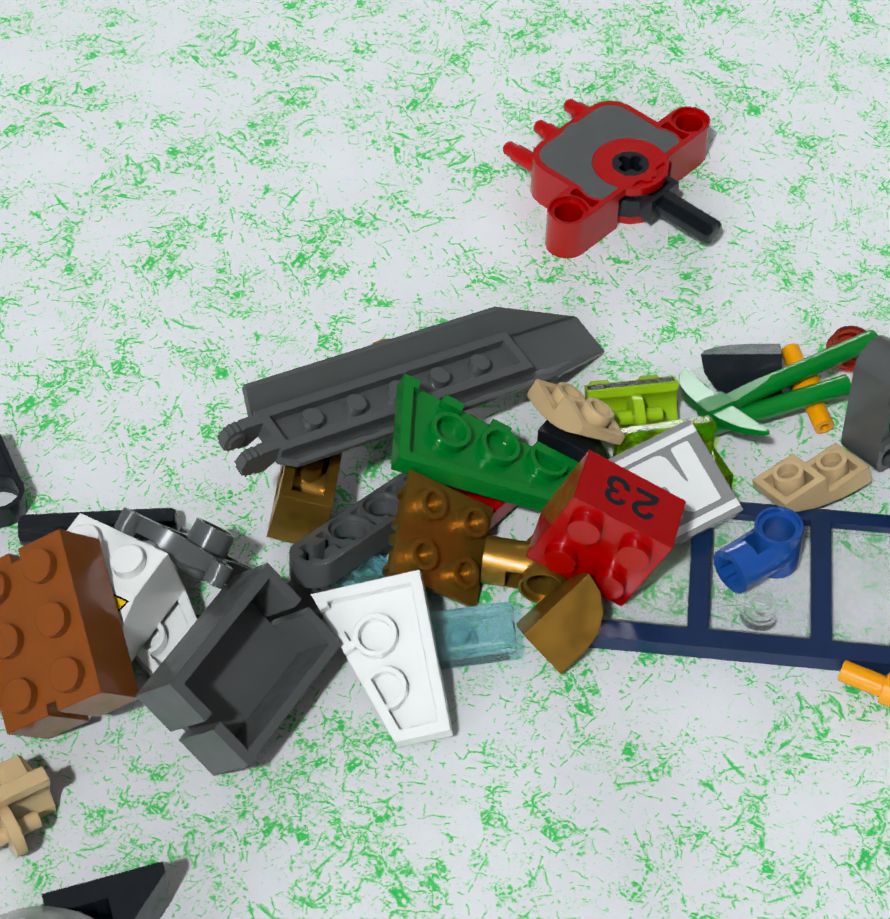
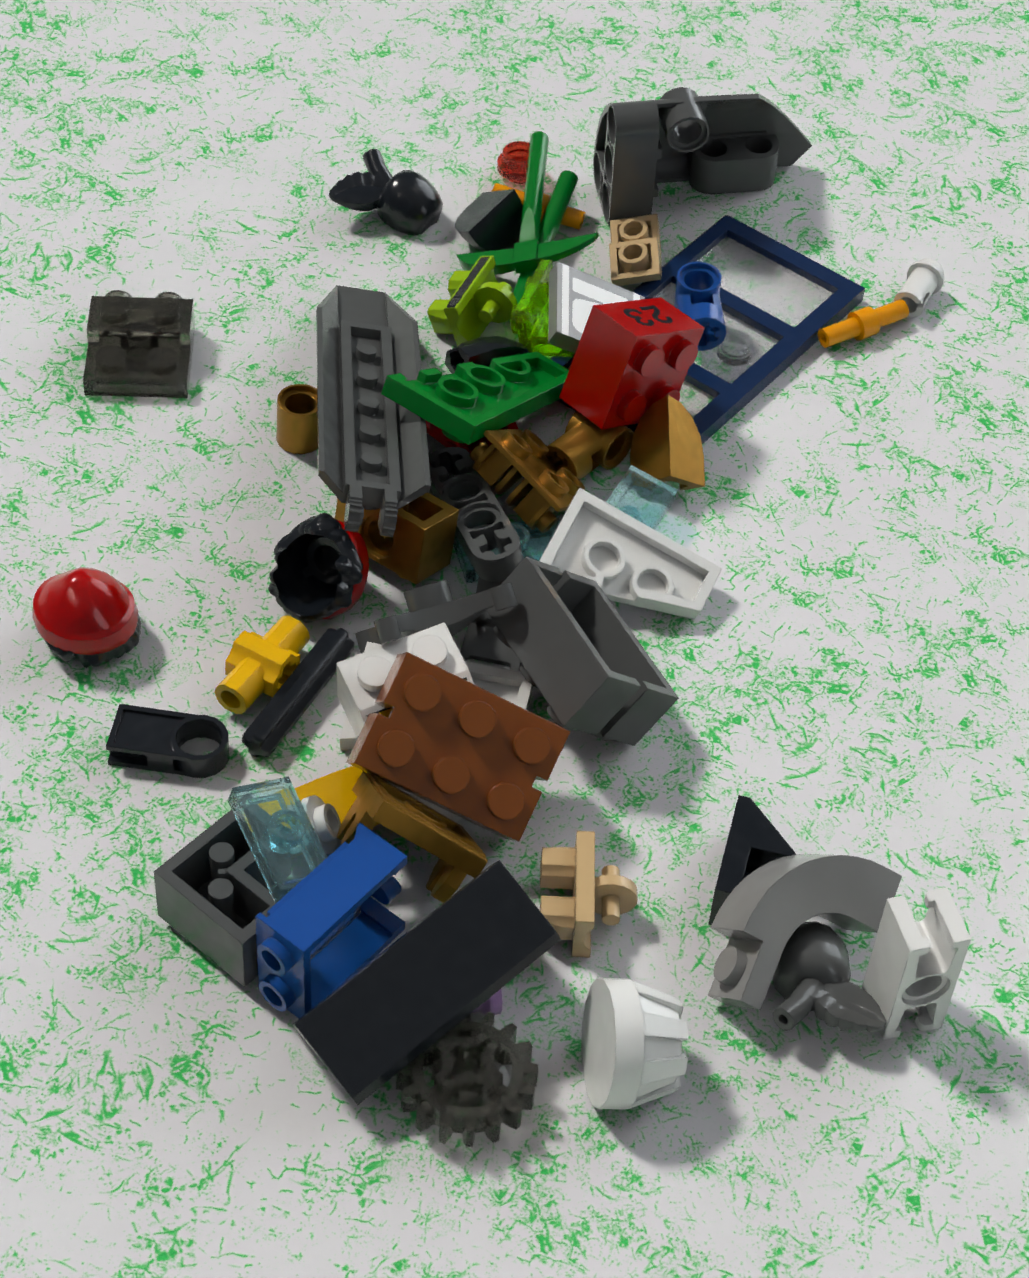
camera: 60 degrees left, 0 degrees up
(70, 365) = (86, 616): none -> red hair
(103, 486) = (261, 663): none -> yellow axle
(209, 475) = (319, 569): none -> black hair
(391, 244) = (139, 345): none -> clear smoke plate
(569, 411) = (485, 323): tan slope -> none
(613, 170) = (198, 176): piece -> none
(716, 298) = (402, 200): none -> black piece

